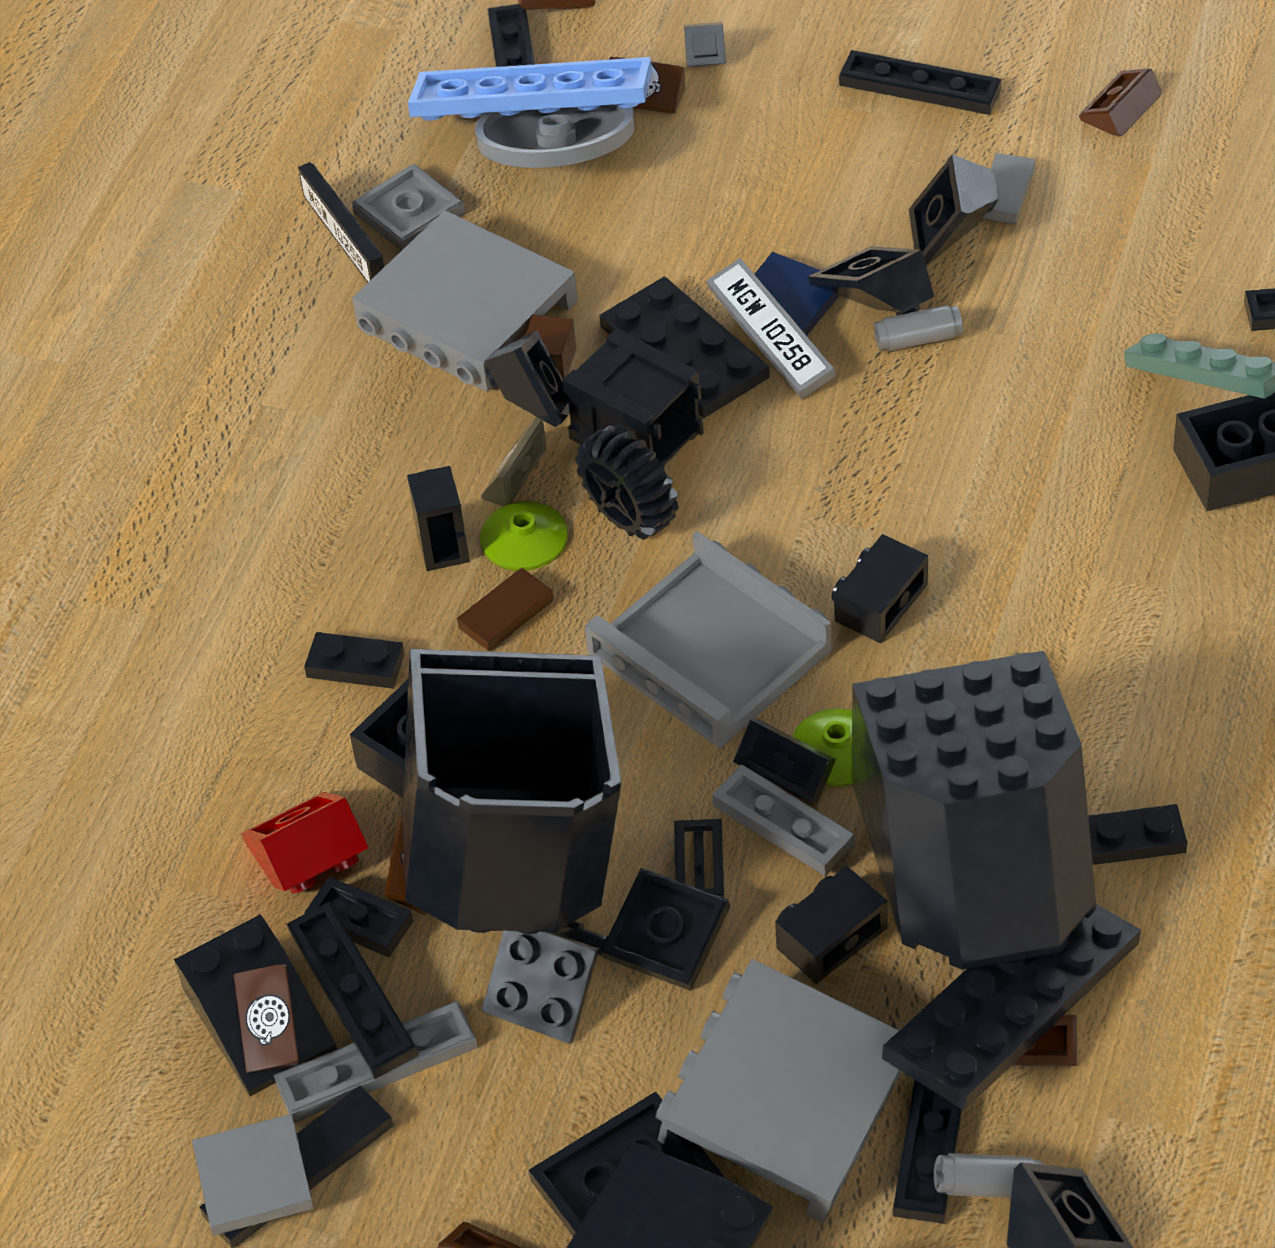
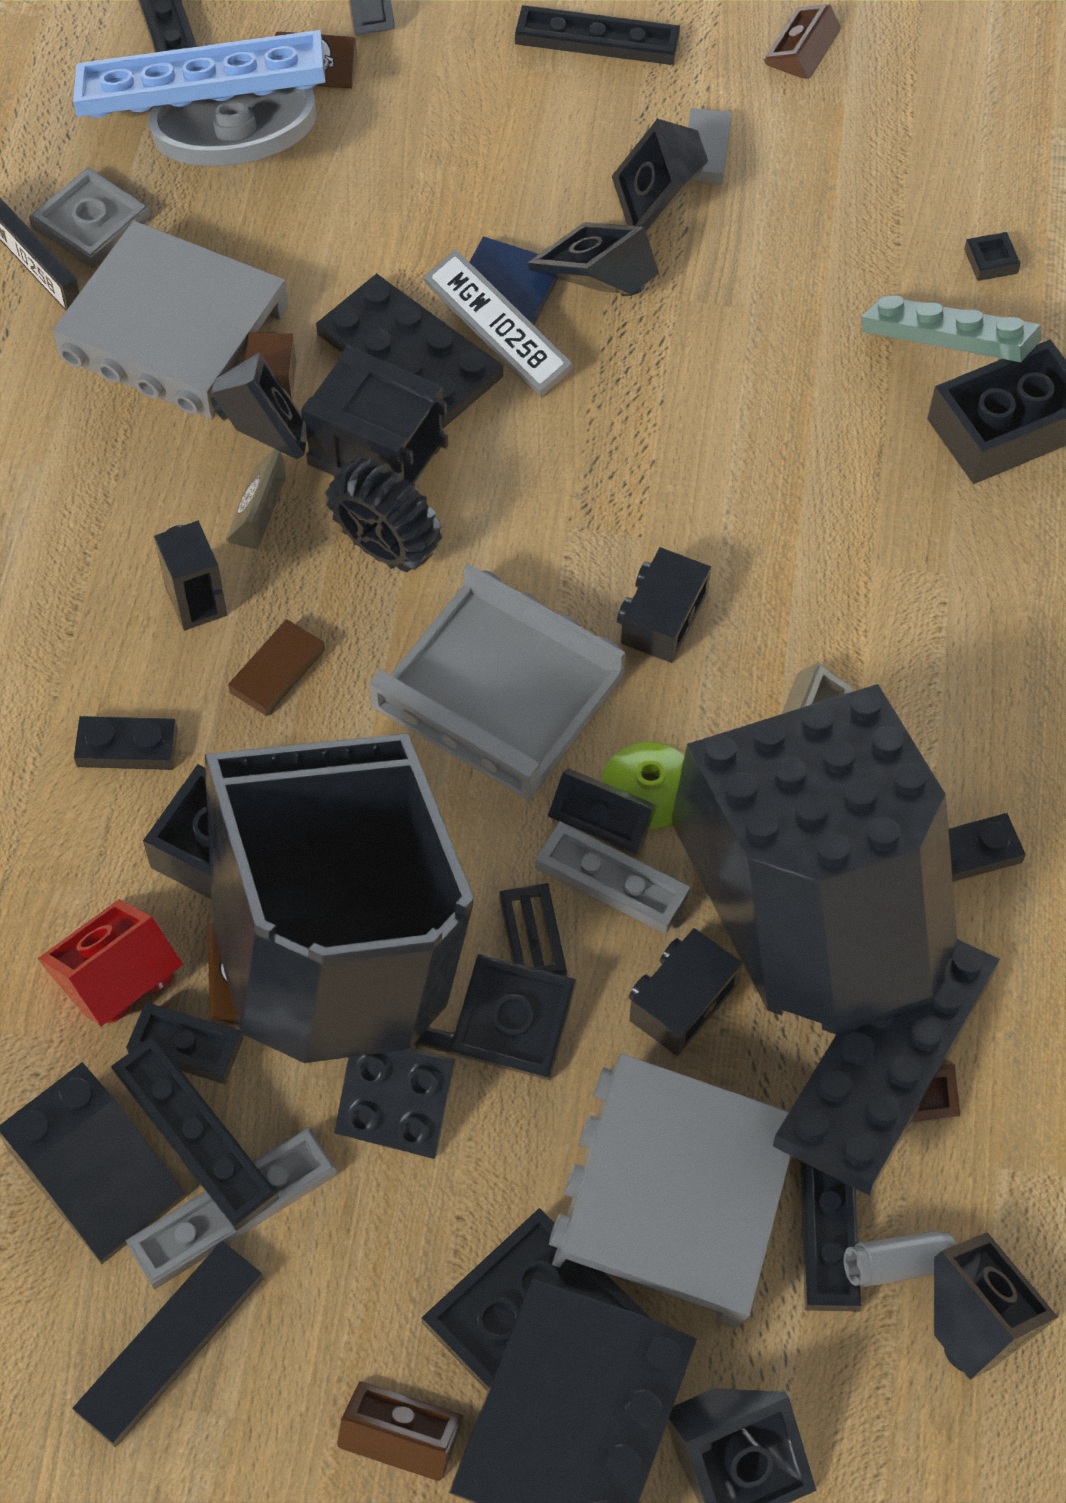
camera: 15 degrees left, 10 degrees up
(252, 1174) = (124, 1365): light grey tile -> none
(266, 1019) = (109, 1182): reddish brown slope -> none
(523, 536) = (282, 594): lime dish -> none
(918, 328) = (648, 309): light grey piece -> none

